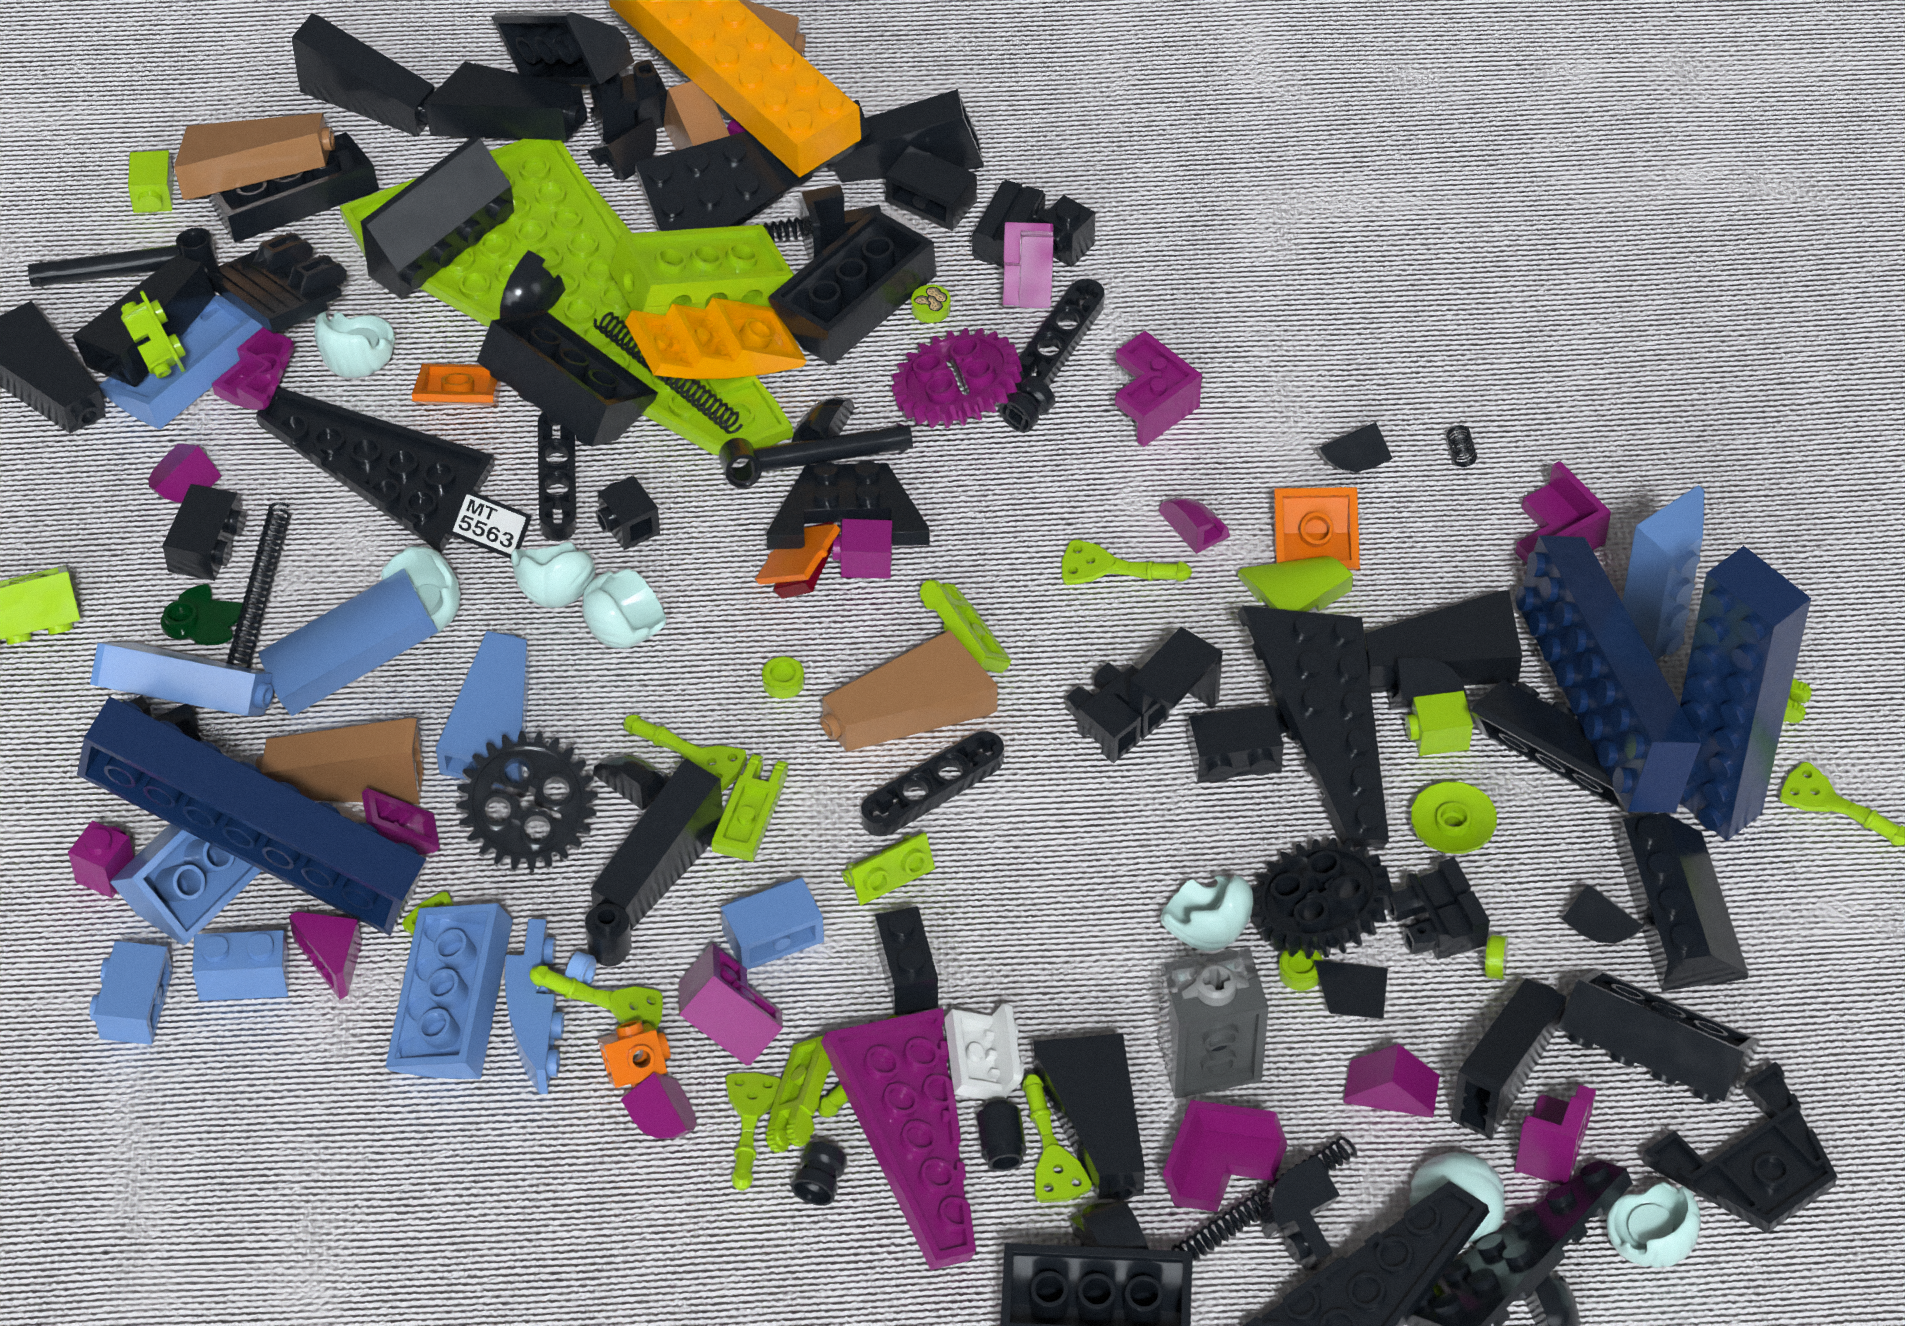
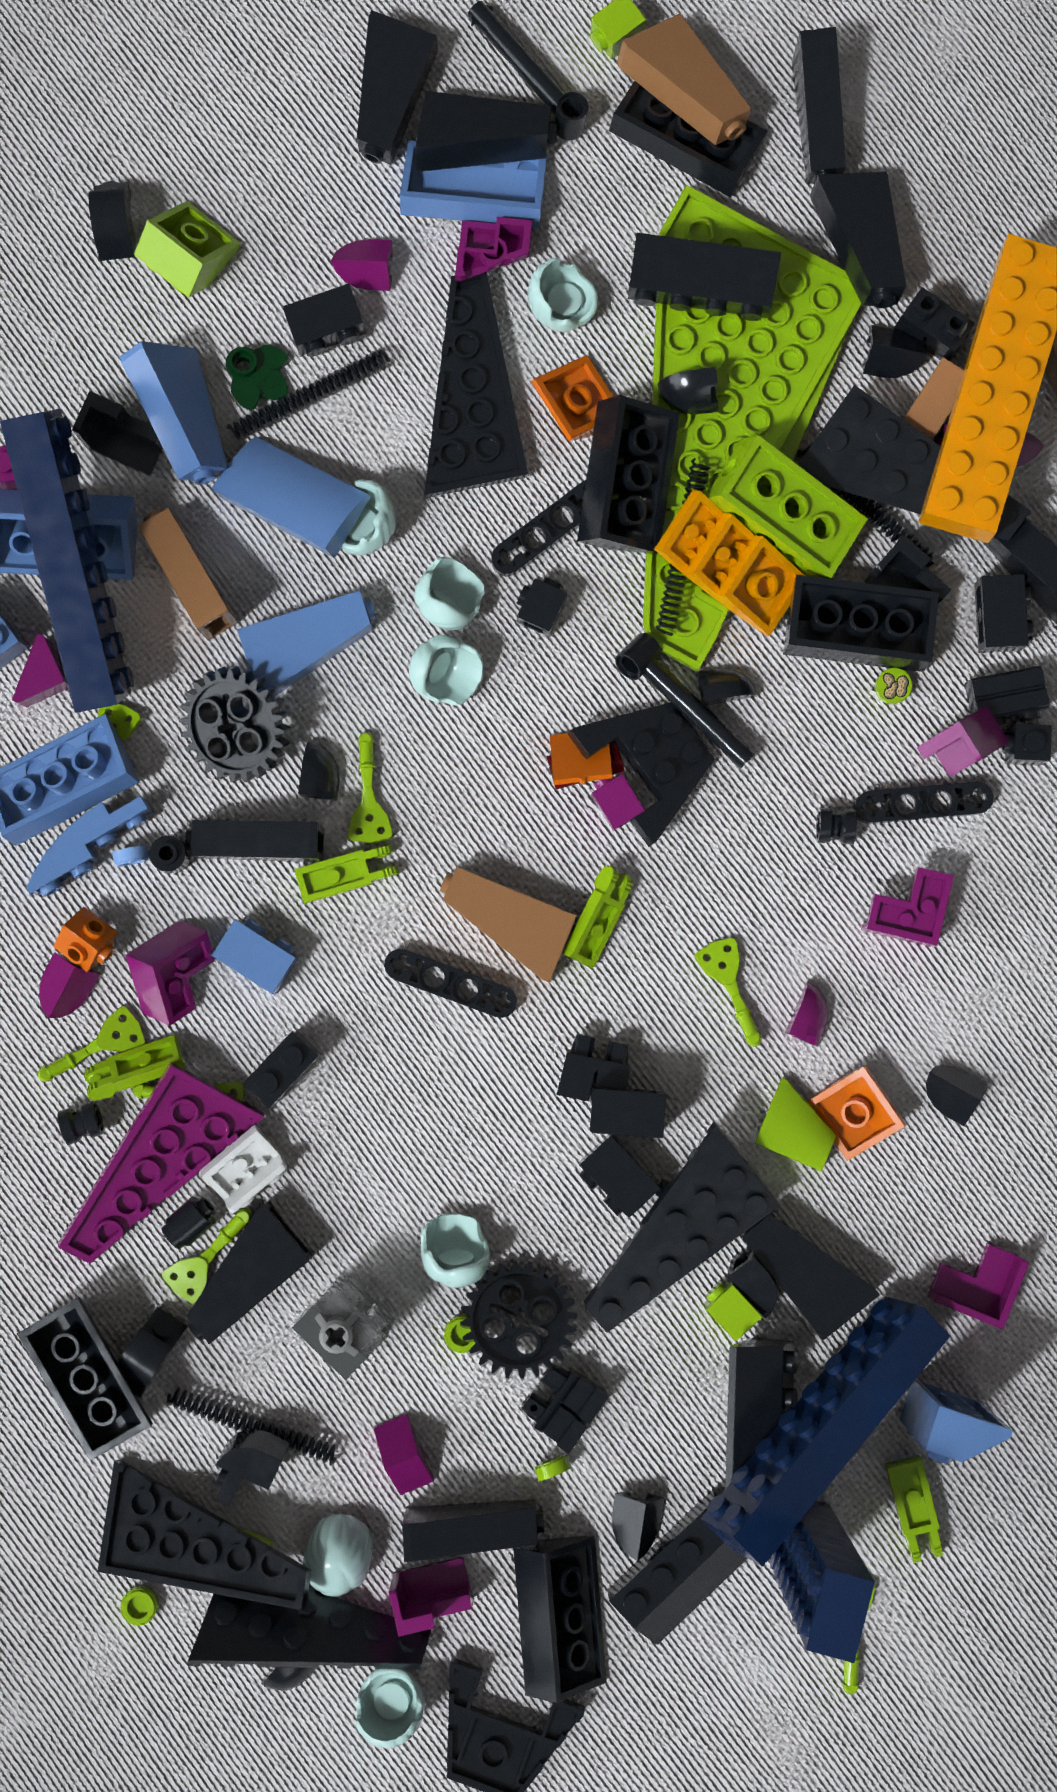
camera: 60 degrees right, 35 degrees up
(146, 321) = (443, 173): lime hinge -> none
(280, 282) = (567, 202): black hinge -> none
(401, 821) = (167, 647): magenta slope -> none
(488, 523) = (468, 514): sticker -> none
(564, 46) = (937, 247): black slope -> none
(615, 1001) = (123, 895): lime piece -> none
(783, 677) = (475, 815): lime tile -> none
(890, 868) = (343, 995): lime hinge -> none
(983, 364) = (851, 776): magenta gear -> none
(1221, 1143) = (267, 1372): magenta panel -> none
(1353, 988) = (466, 1381): black sticker -> none
(1457, 805) = (658, 1386): lime dish -> none
(1460, 441) = (1022, 1159): black piece -> none

